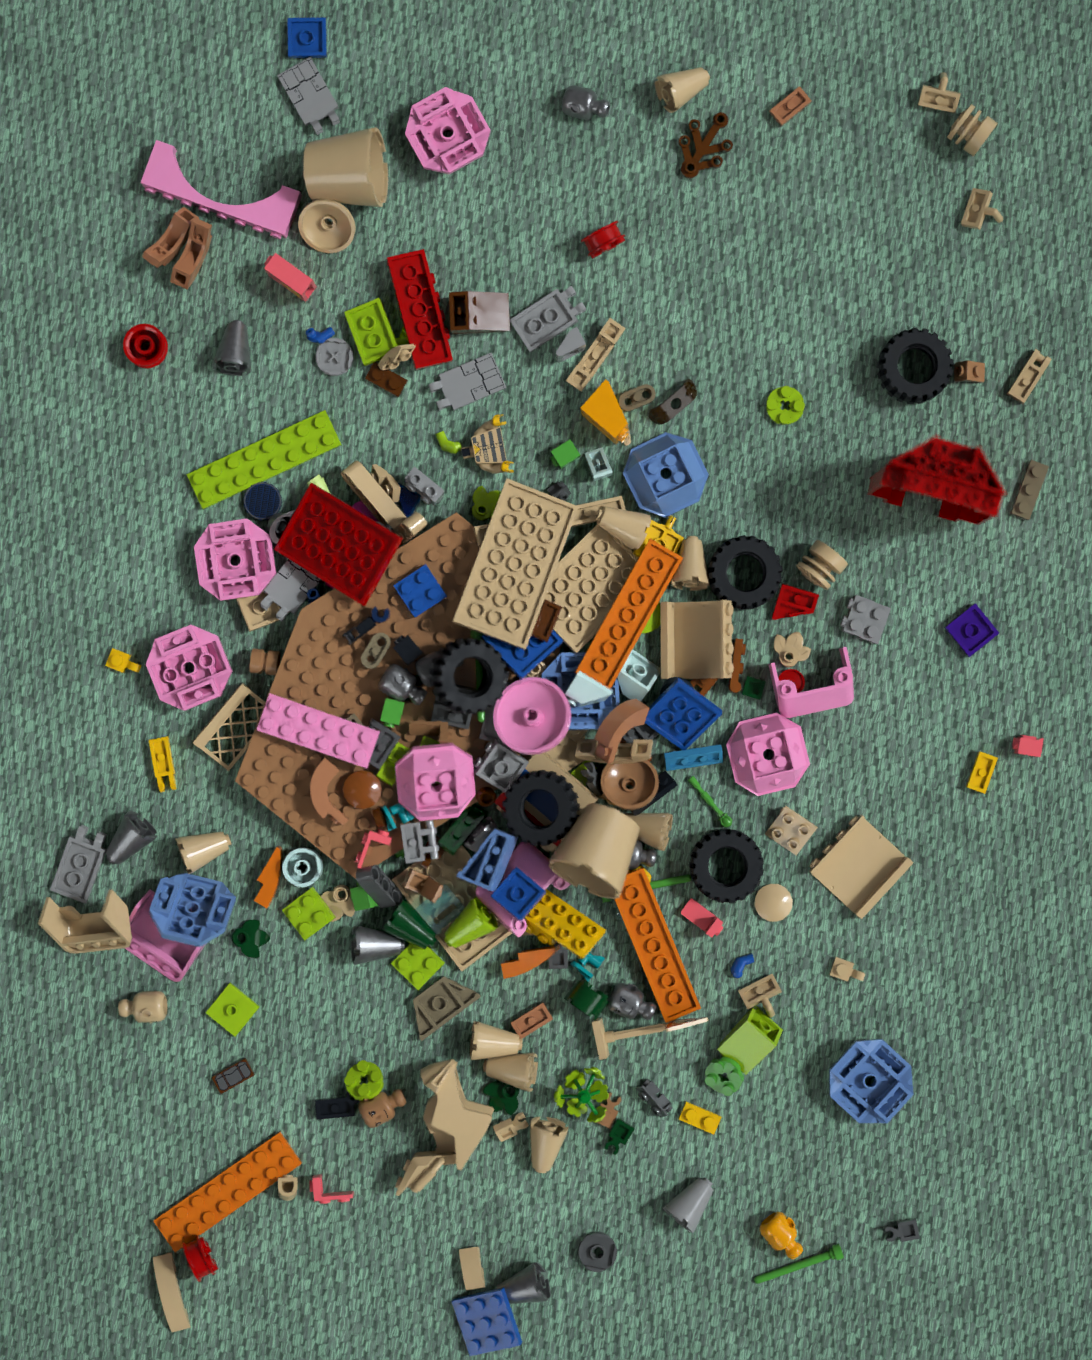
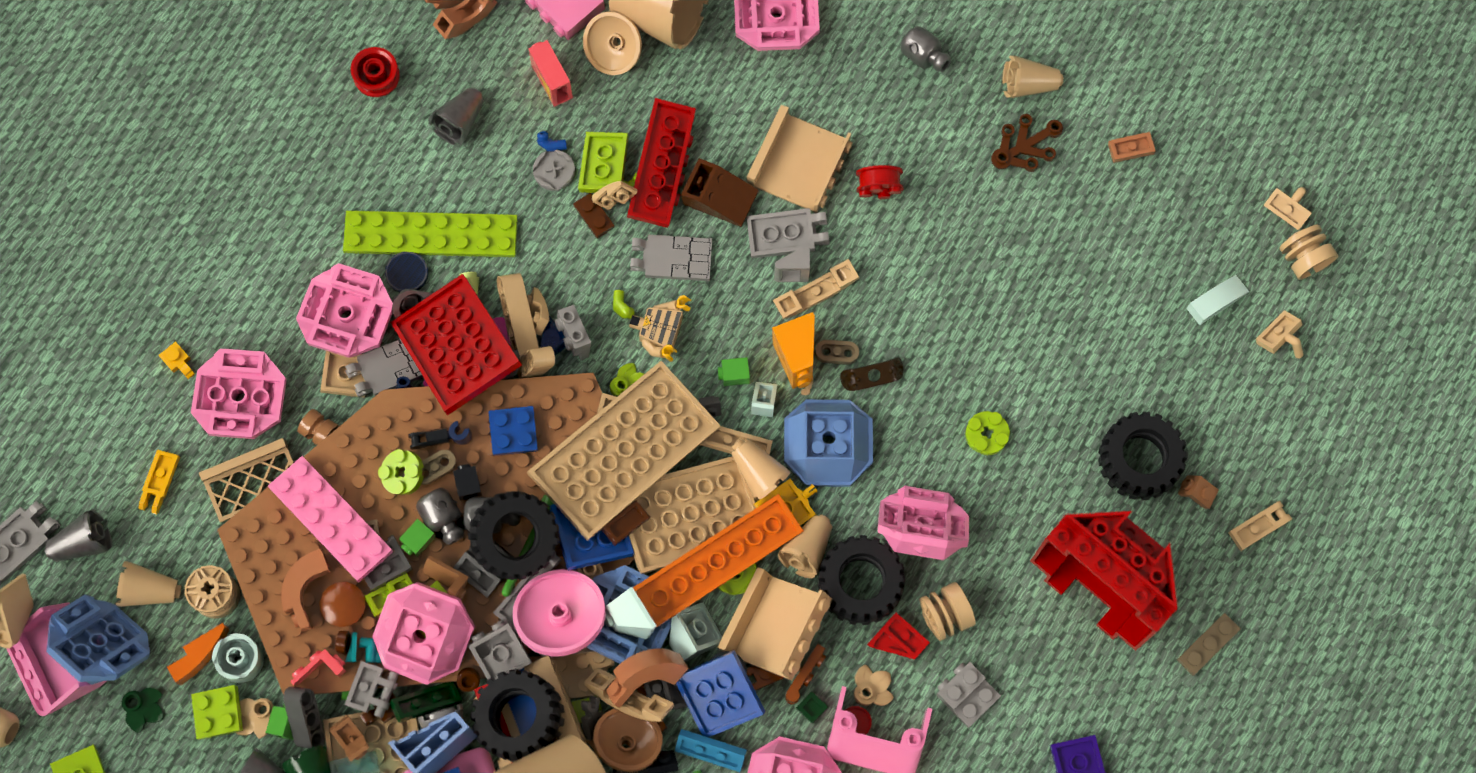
camera: 25 degrees right, 15 degrees down
(266, 827) = (223, 597): none -> tan wheel
(362, 662) = (390, 472): none -> plate
(528, 251) = (798, 161): none -> tan panel
(771, 504) = (923, 523): none -> bright pink piece
(916, 205) = (1217, 299): none -> light aqua slope

